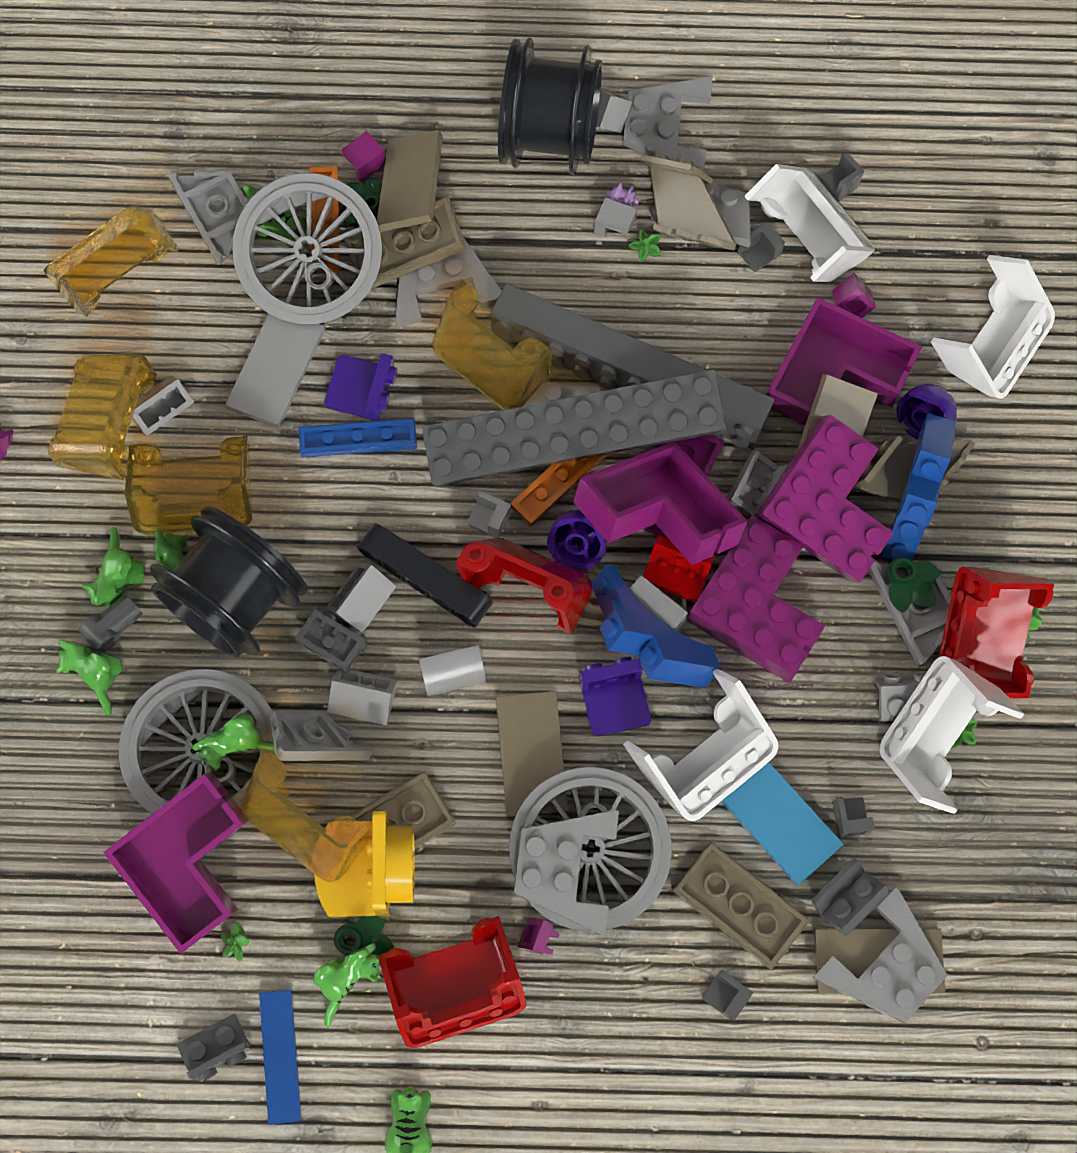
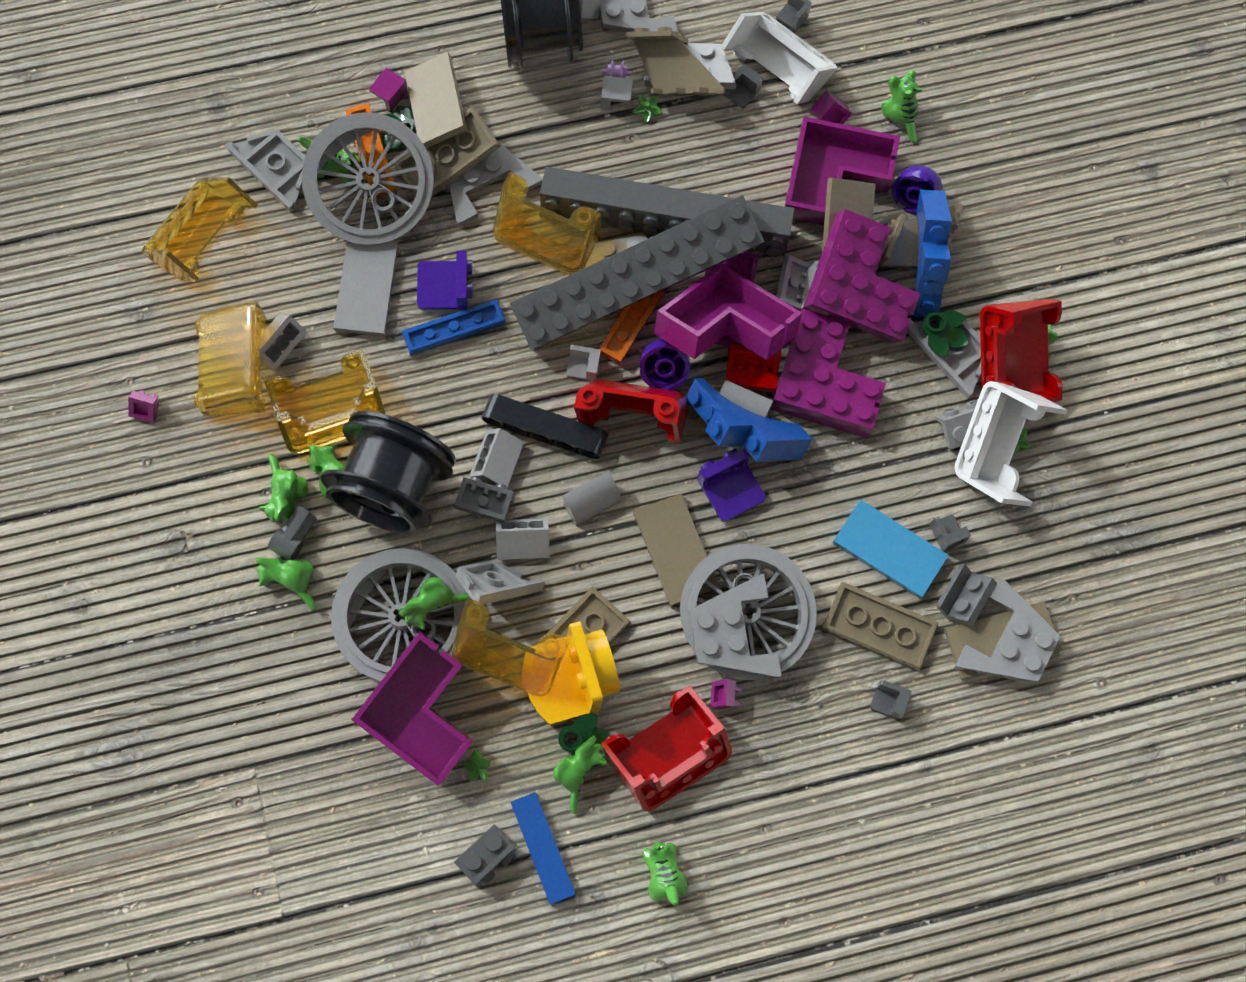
camera: 20 degrees left, 0 degrees up
(719, 762) = (832, 515): white windscreen -> none
(938, 311) = (903, 105): none -> bright green animal
(1010, 335) = (965, 110): white windscreen -> none

